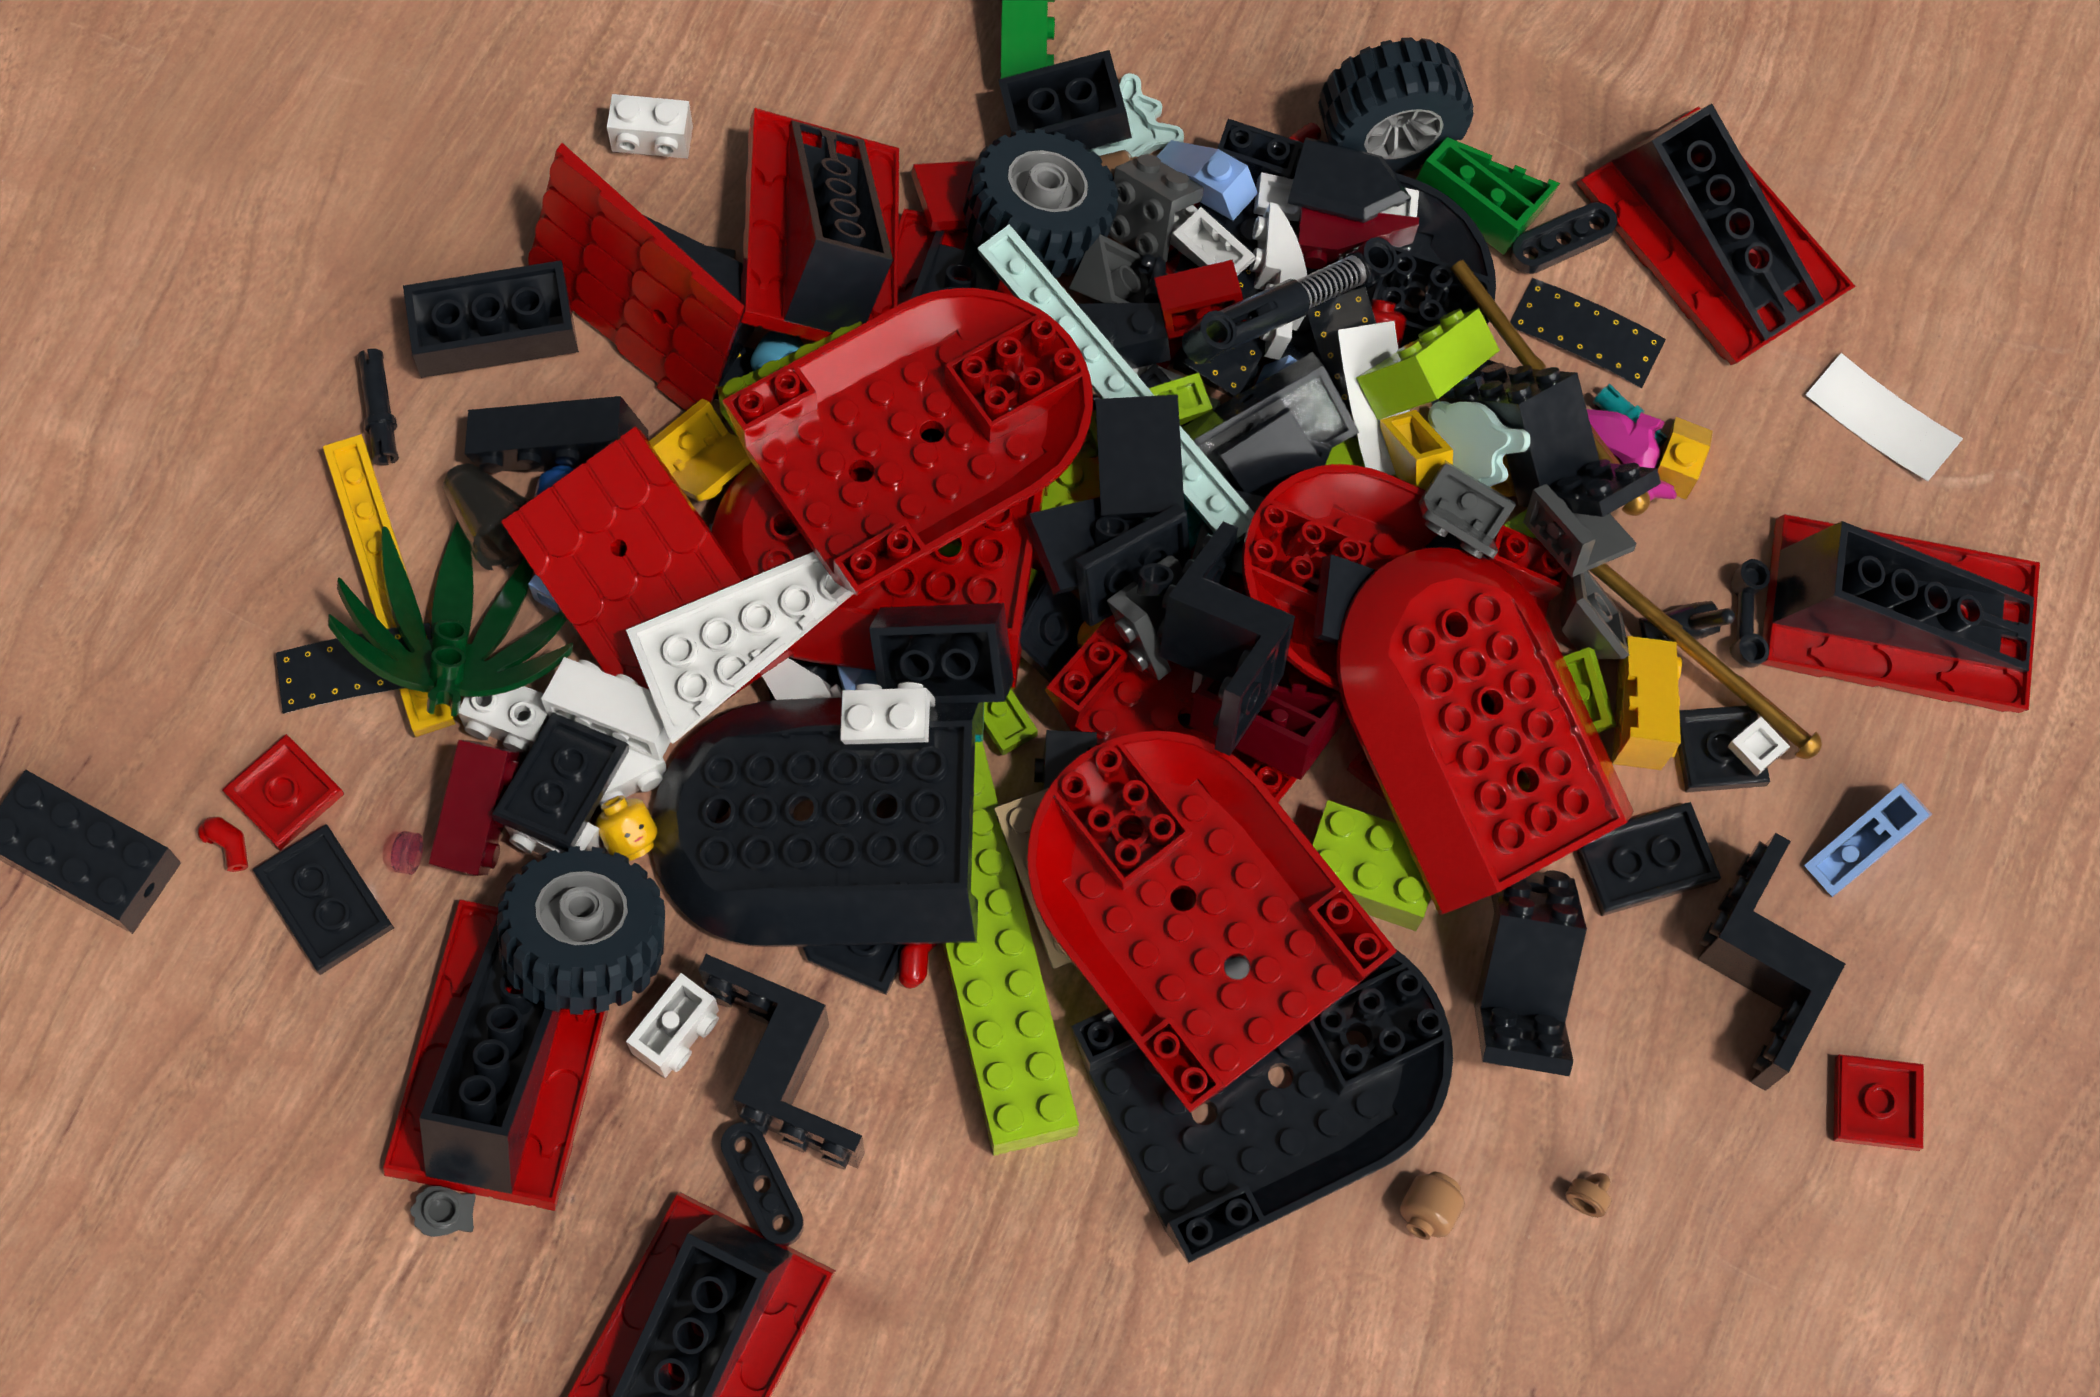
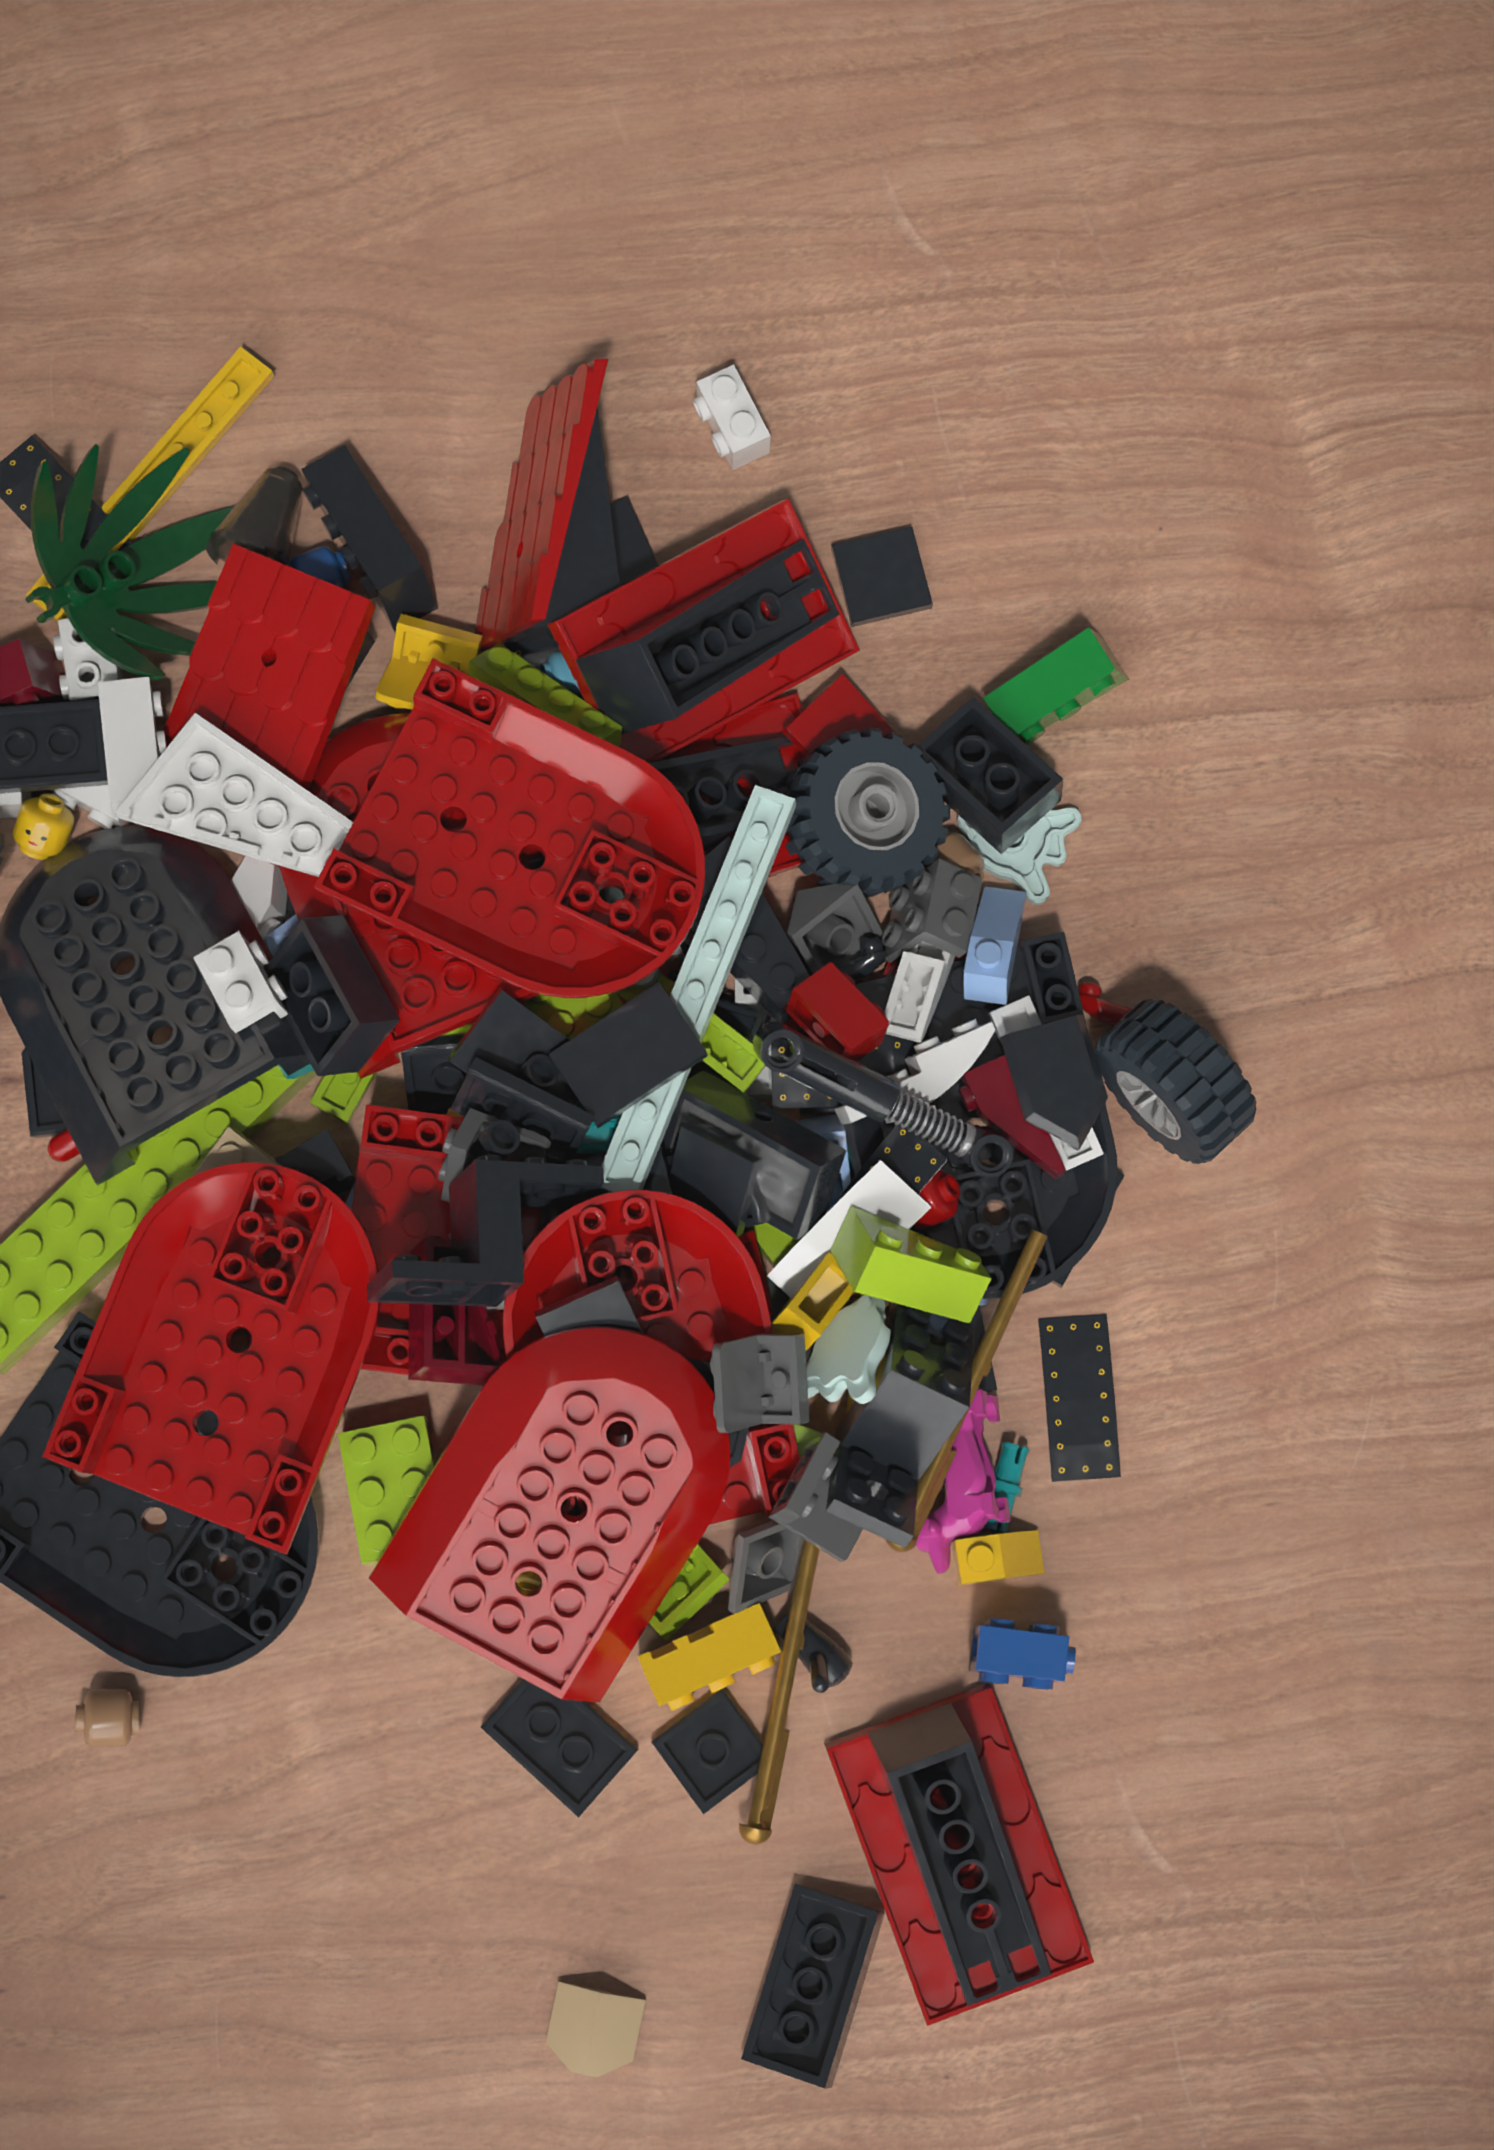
camera: 60 degrees right, 10 degrees up
(379, 420) = (317, 360): black pin -> none
(490, 319) = (446, 405): black slope -> none
(850, 99) = (881, 576): none -> black tile
(1493, 195) = (1154, 1218): green wedge -> none
(1531, 974) = (357, 1691): black bracket -> none
(1572, 228) = (1182, 1322): black plate -> none
(1589, 1197) = (196, 1853): medium nougat tile -> none
(1716, 235) = (1263, 1465): piece -> none
(1747, 581) = (900, 1688): black bar -> none
(1758, 746) = (724, 1784): white plate -> none
(1769, 962) = (507, 1902): black bracket -> none
(1774, 472) = (1034, 1655): none -> blue brick
(1868, 839) = (699, 1937): light blue slope -> none
(1878, 1102) = (446, 2075): red tile -> none
(1883, 418) = (1165, 1732): white sticker -> none
(1899, 965) = (594, 2028): none -> tan slope
(1953, 776) = (813, 1986): none -> black slope

